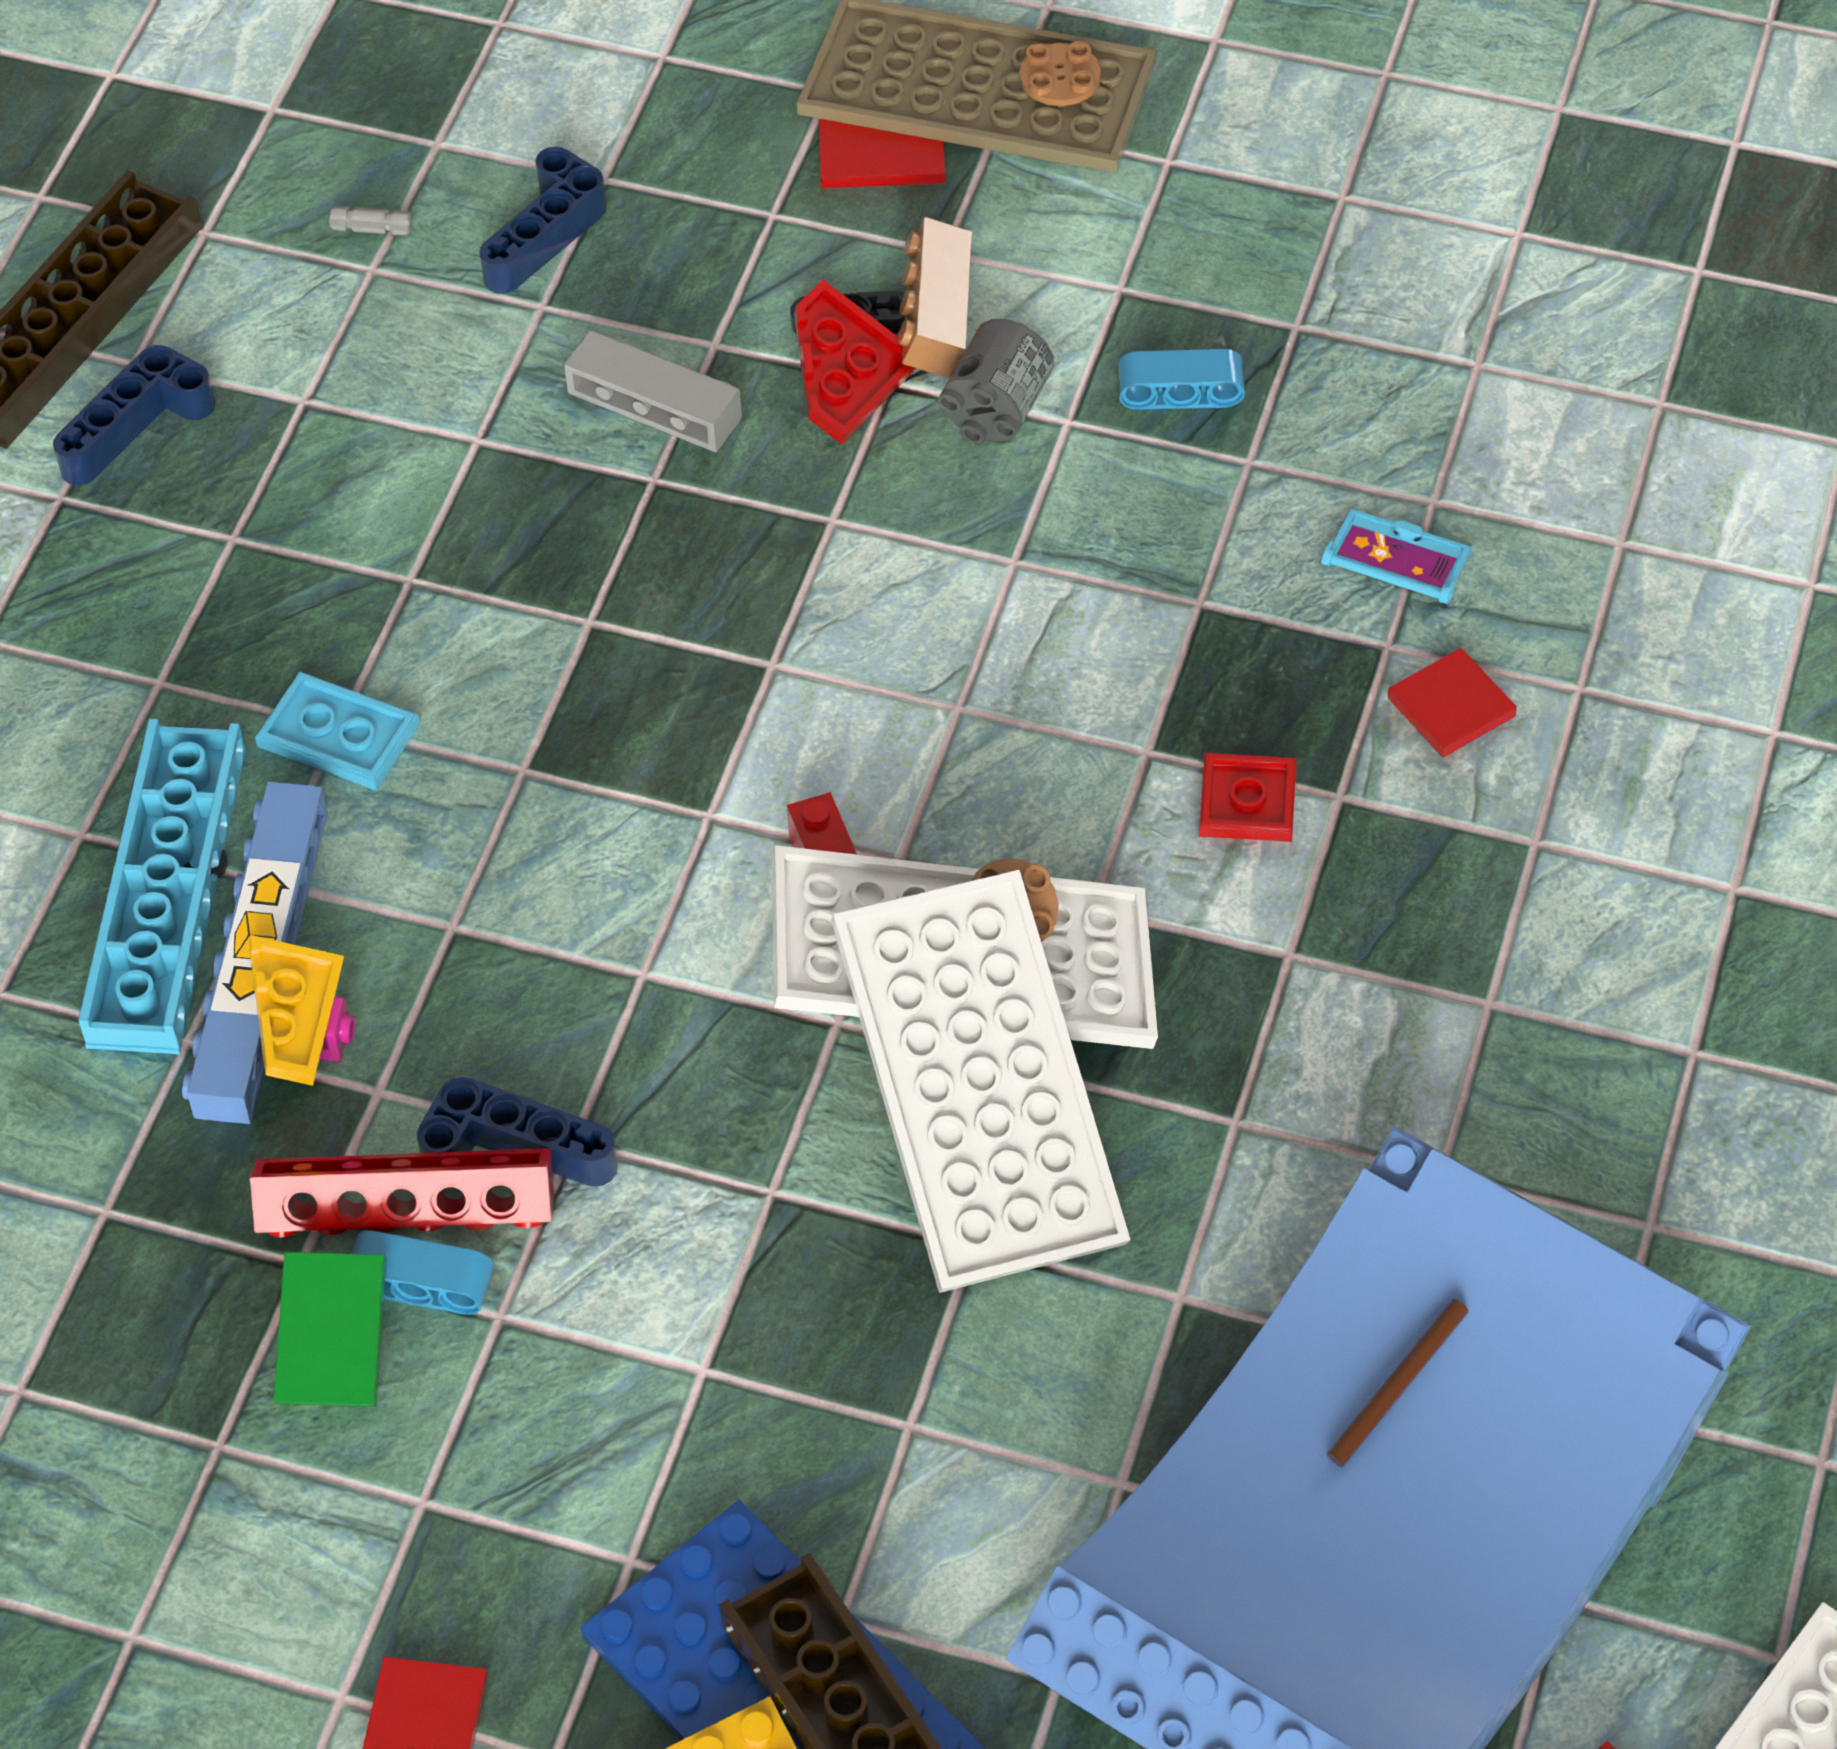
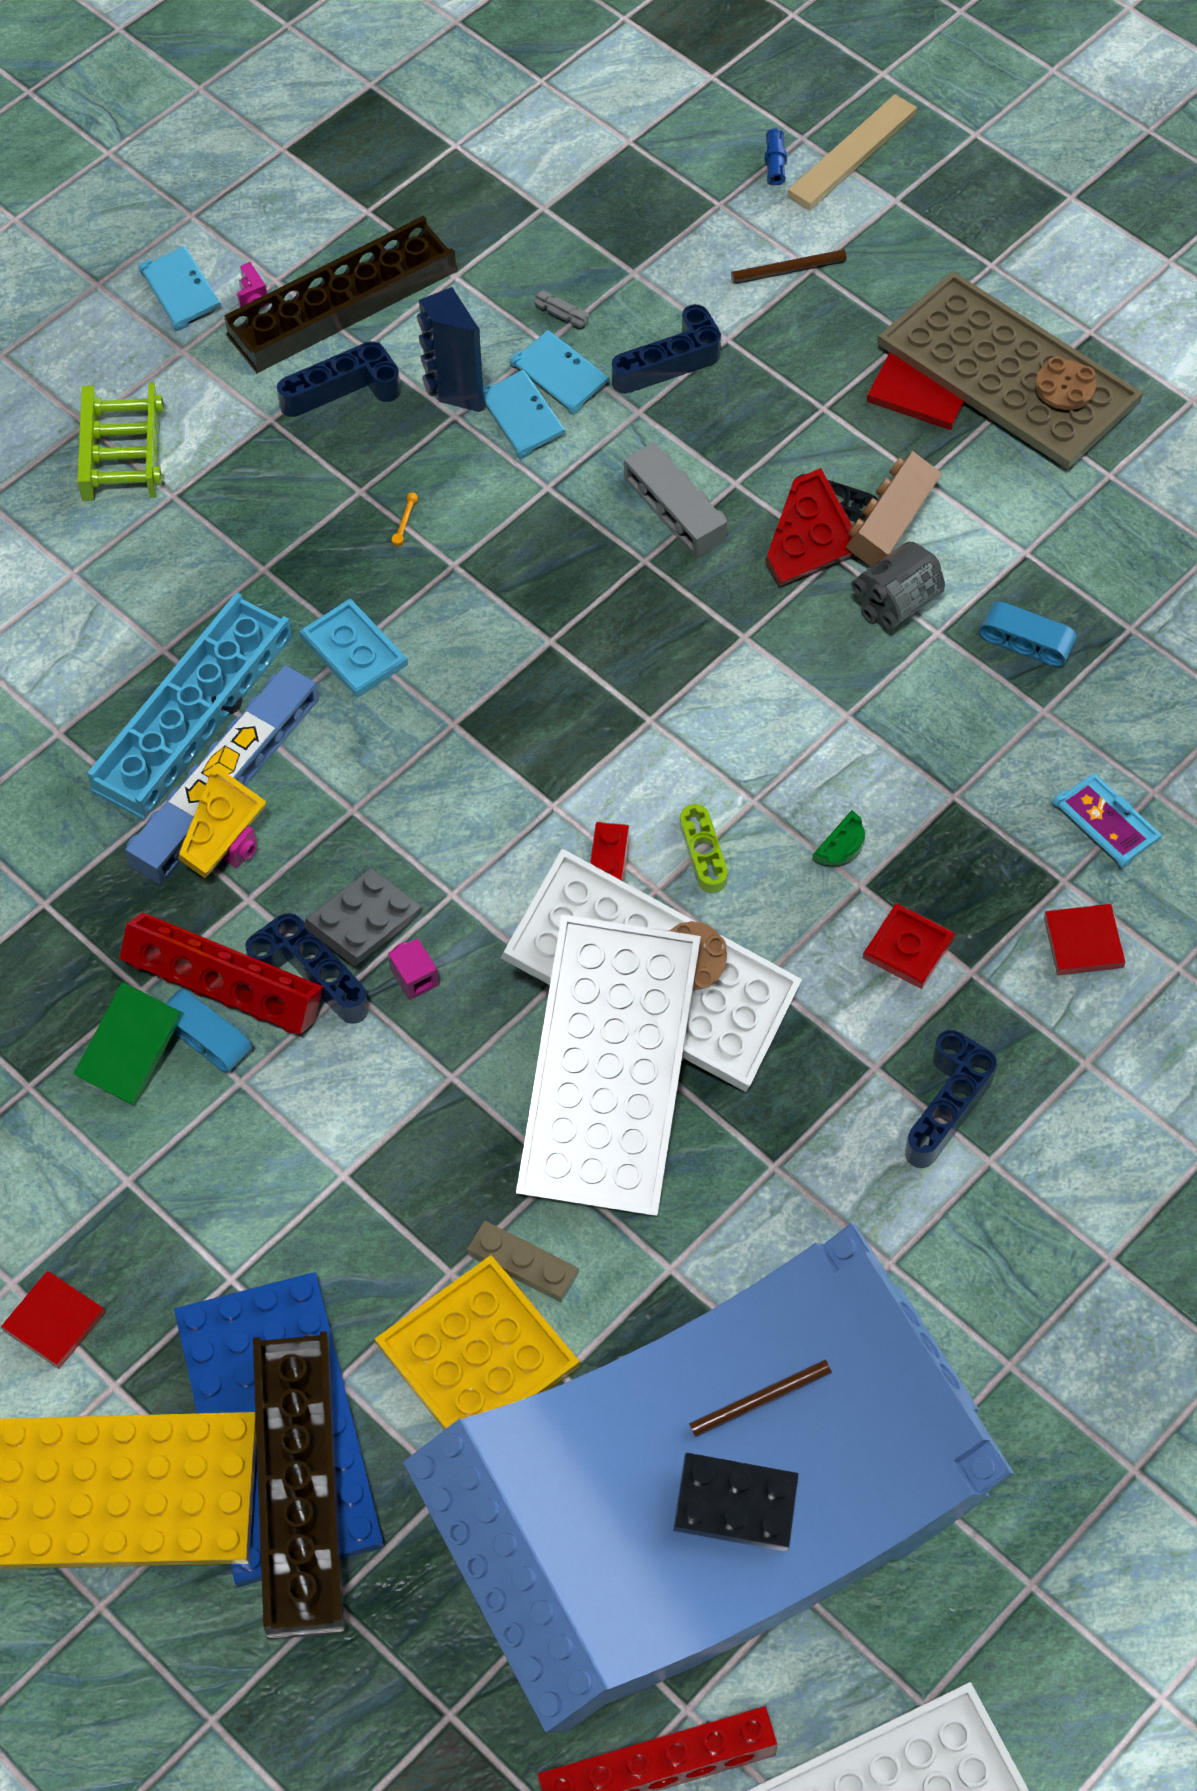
camera: 25 degrees right, 5 degrees up
(275, 313) = (451, 351): none -> dark blue slope
(317, 577) = (398, 539): none -> light orange hinge
(402, 373) = (523, 421): none -> medium azure door
(427, 301) = (566, 379): none -> medium azure door
(549, 1045) = (362, 917): none -> dark grey plate
(631, 65) = (788, 266): none -> reddish brown bar
(649, 1081) = (413, 968): none -> dark pink brick
(934, 806) = (700, 861): none -> lime beam
(993, 1370) = (524, 1261): none -> dark tan plate
(998, 1498) = (476, 1347): none -> yellow plate
(1100, 709) = (843, 843): none -> green plate
(1397, 909) = (946, 1104): none -> dark blue beam
(1439, 1516) = (736, 1502): none -> black plate

